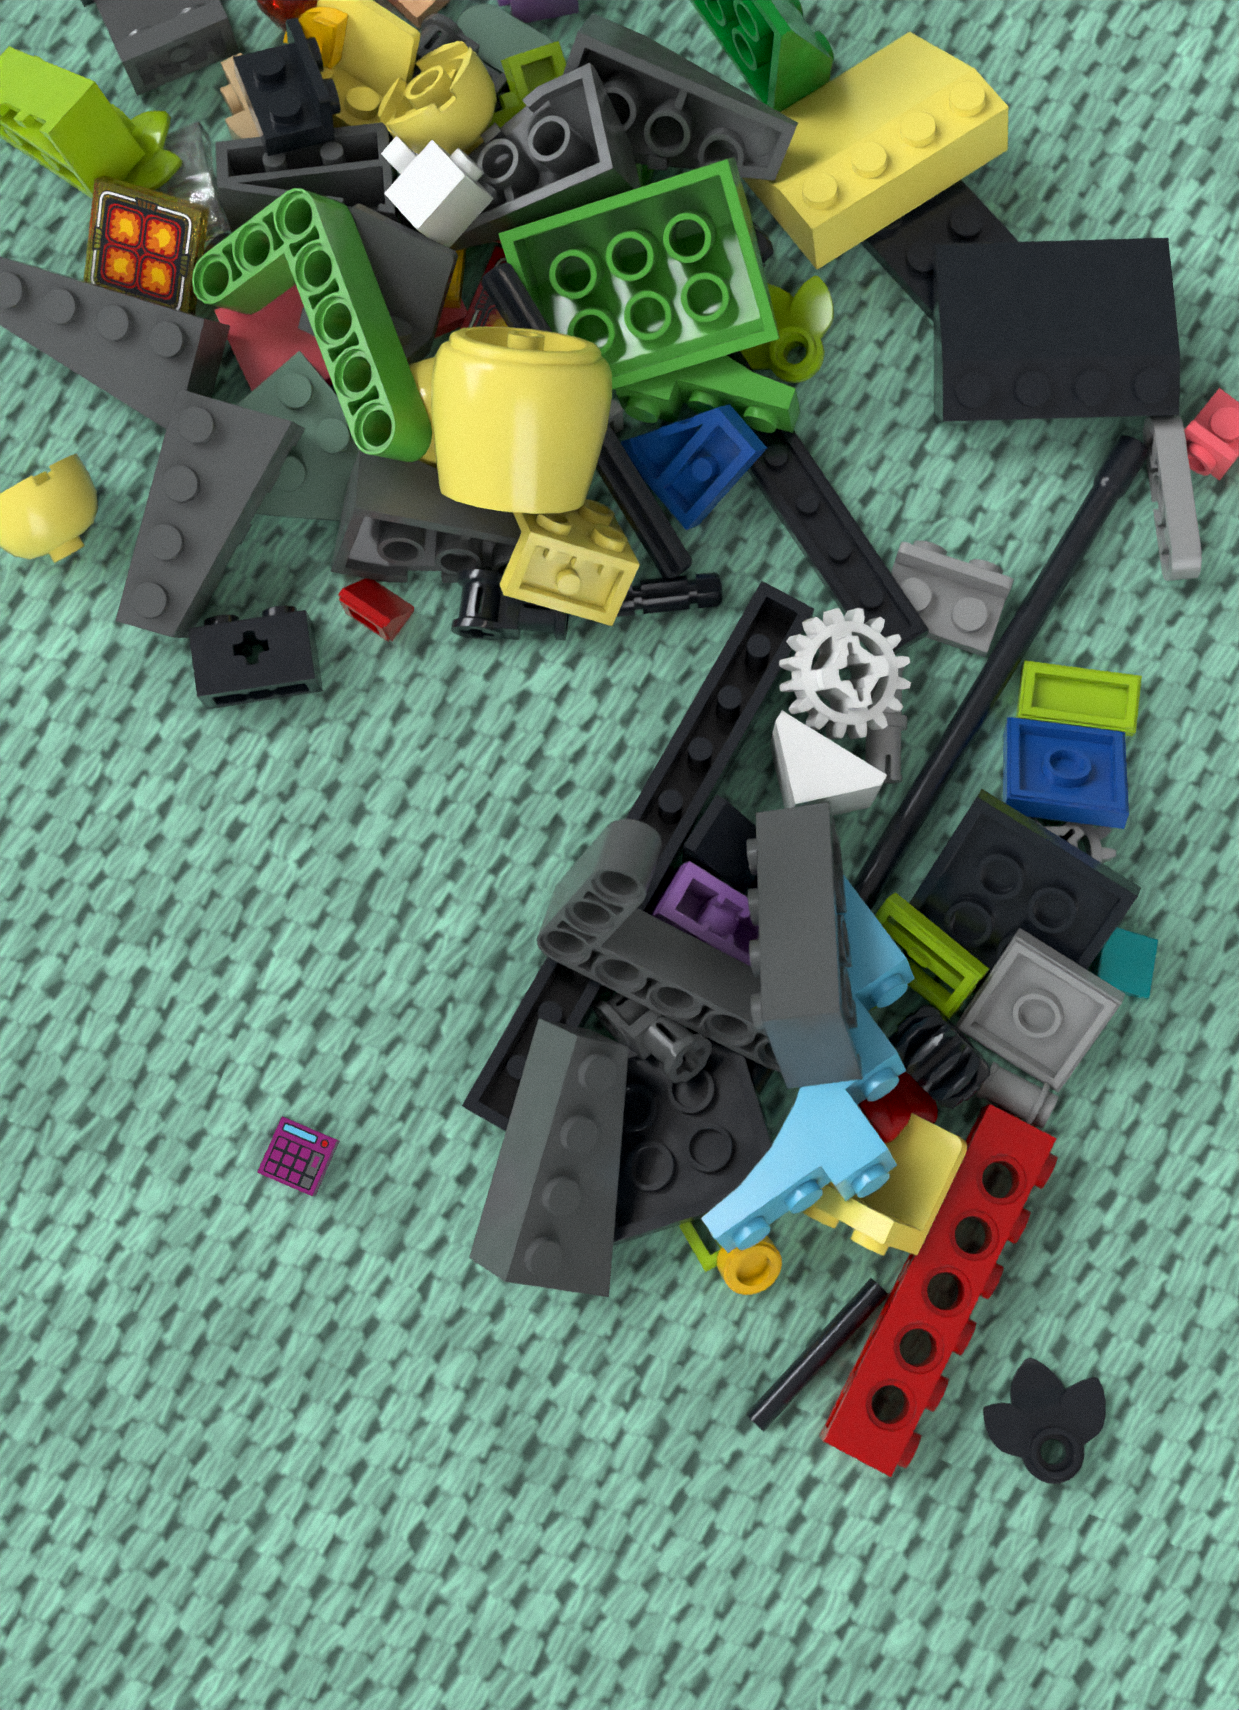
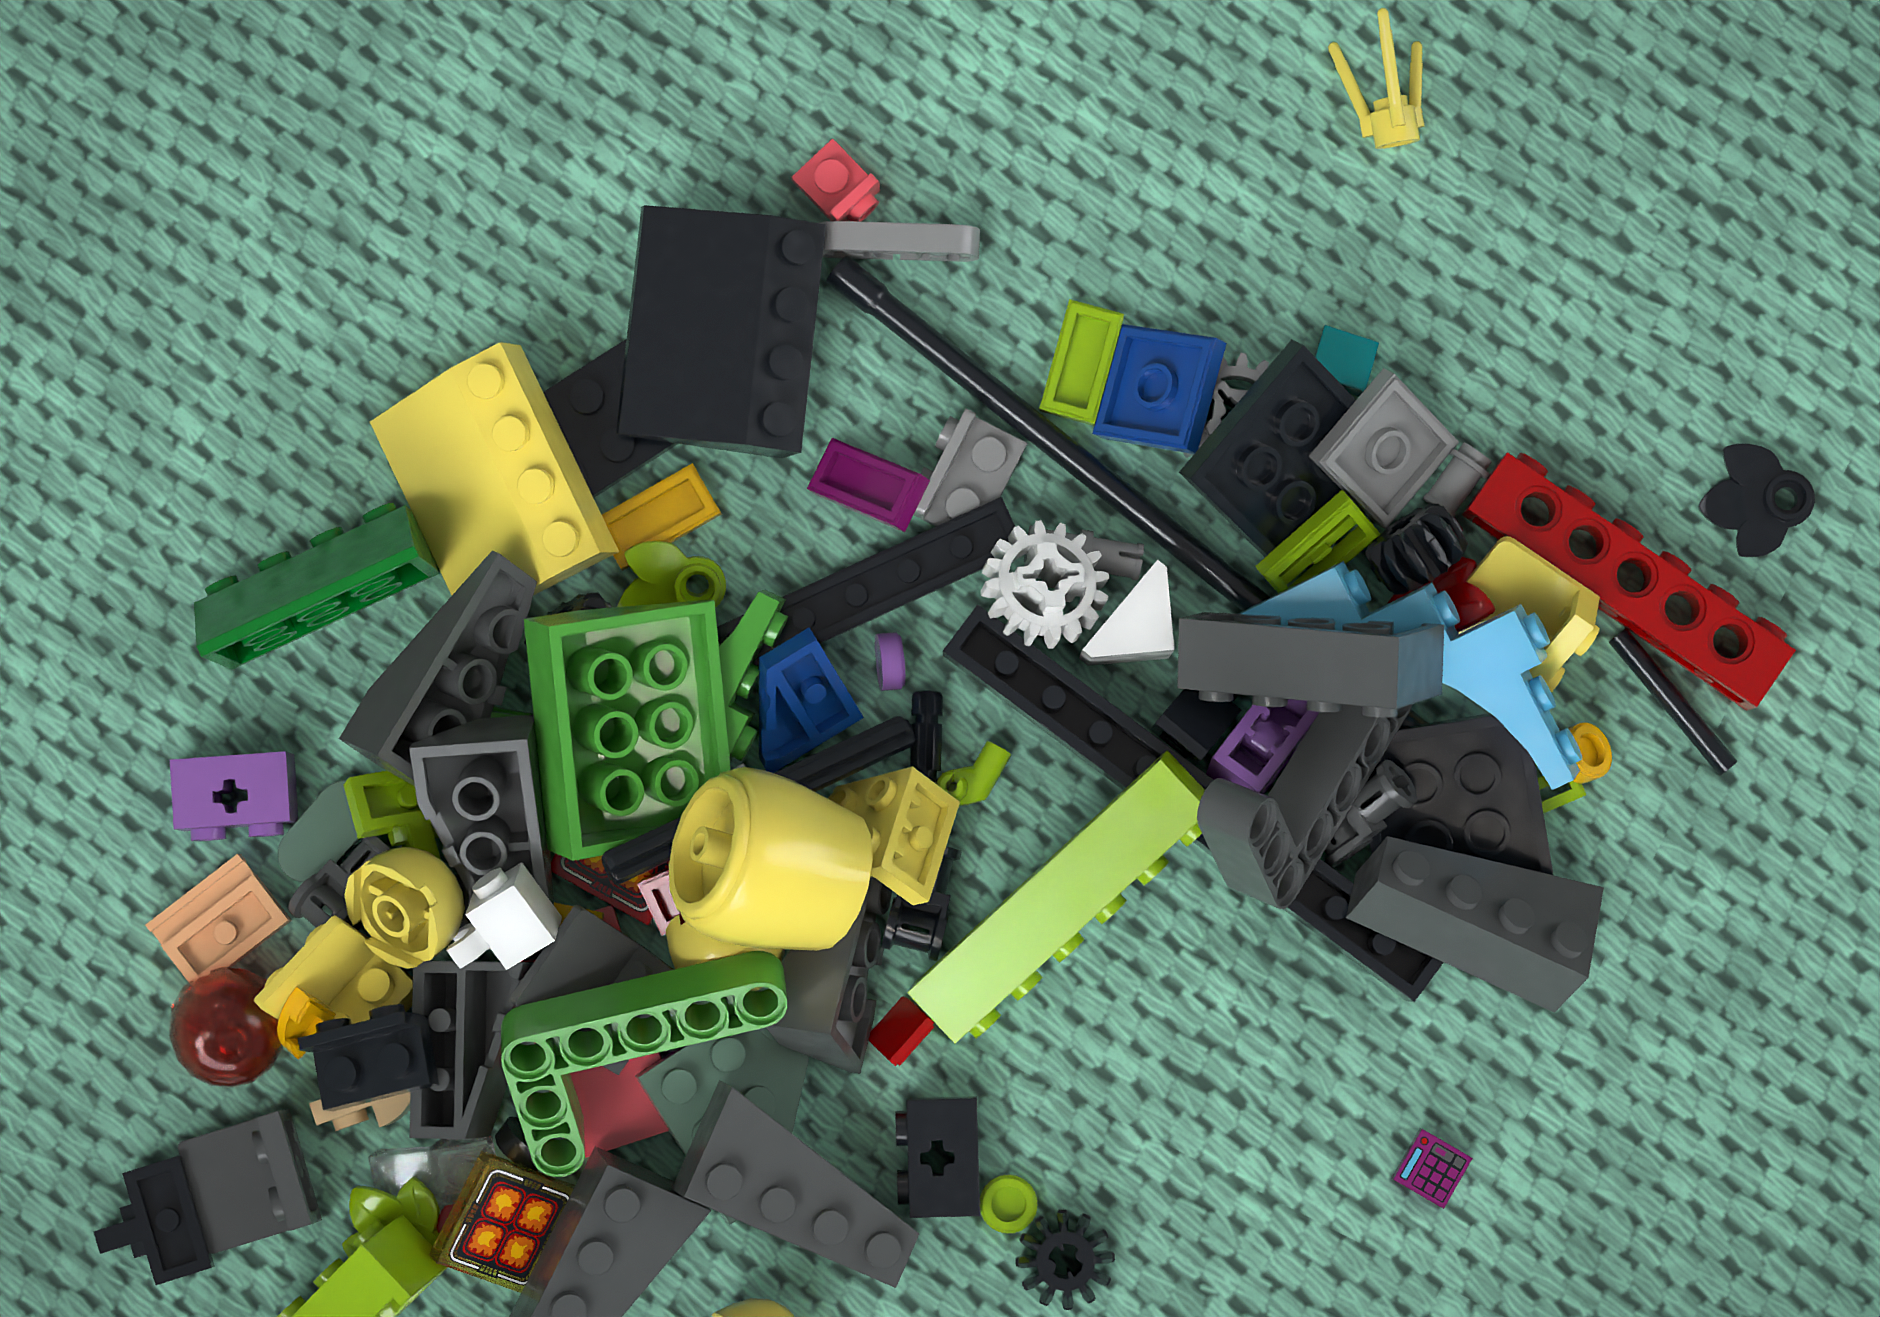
camera: 85 degrees left, 5 degrees up
(170, 812) = (1083, 1253): none -> black gear
(218, 734) = (1008, 1203): none -> lime tile
(519, 726) = (1060, 899): none -> lime brick
(635, 644) = (976, 781): none -> lime arm
(745, 544) = (889, 661): none -> medium lavender tile
(863, 312) = (661, 512): none -> yellow tile
(920, 498) = (868, 484): none -> magenta tile

